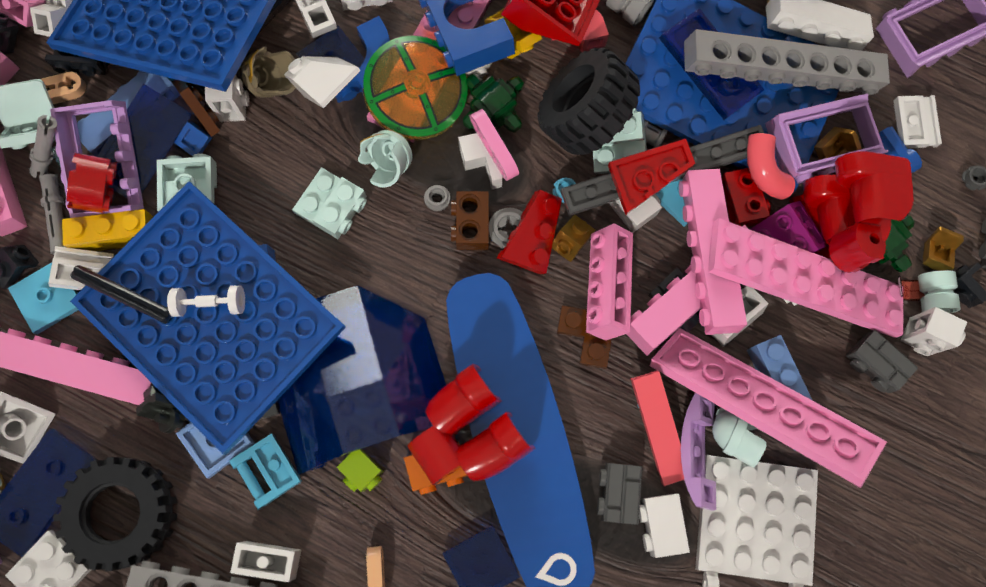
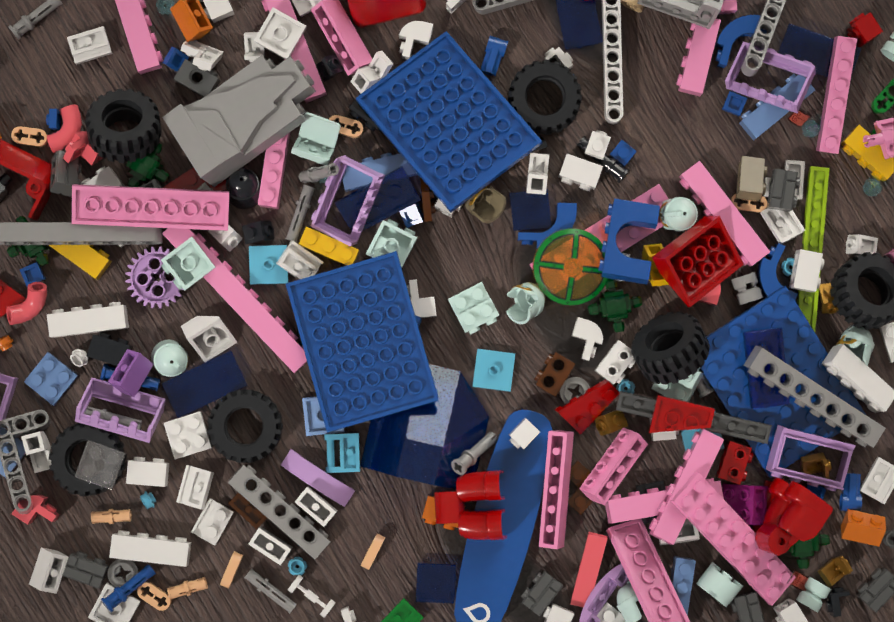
camera: 35 degrees right, 10 degrees up
(90, 183) = (337, 218): red brick -> none
(121, 293) = (319, 300): black axle -> none
(161, 410) = (304, 382): pearl dark grey hips -> none
(178, 302) = (350, 327): white wheel -> none
(252, 523) = (317, 478): none -> lavender slope
(262, 232) = (422, 306): none -> white brick
(320, 77) = (516, 227): white slope -> none
(360, 471) = (397, 488): lime brick -> none
(397, 260) = (493, 370): none -> medium azure plate
(427, 375) = (469, 457): none -> light grey pin
(434, 191) = (537, 349): light grey plate -> none
(475, 303) = (523, 434): none -> white brick
(494, 144) = (596, 338): bright pink beam -> none
(535, 165) = (615, 363): none -> white brick
(558, 352) = (556, 489): none -> bright pink brick
(765, 169) = (752, 456): coral cylinder -> none
(827, 347) = (719, 584): none -> light aqua brick
(941, 181) = (863, 527): none -> orange brick

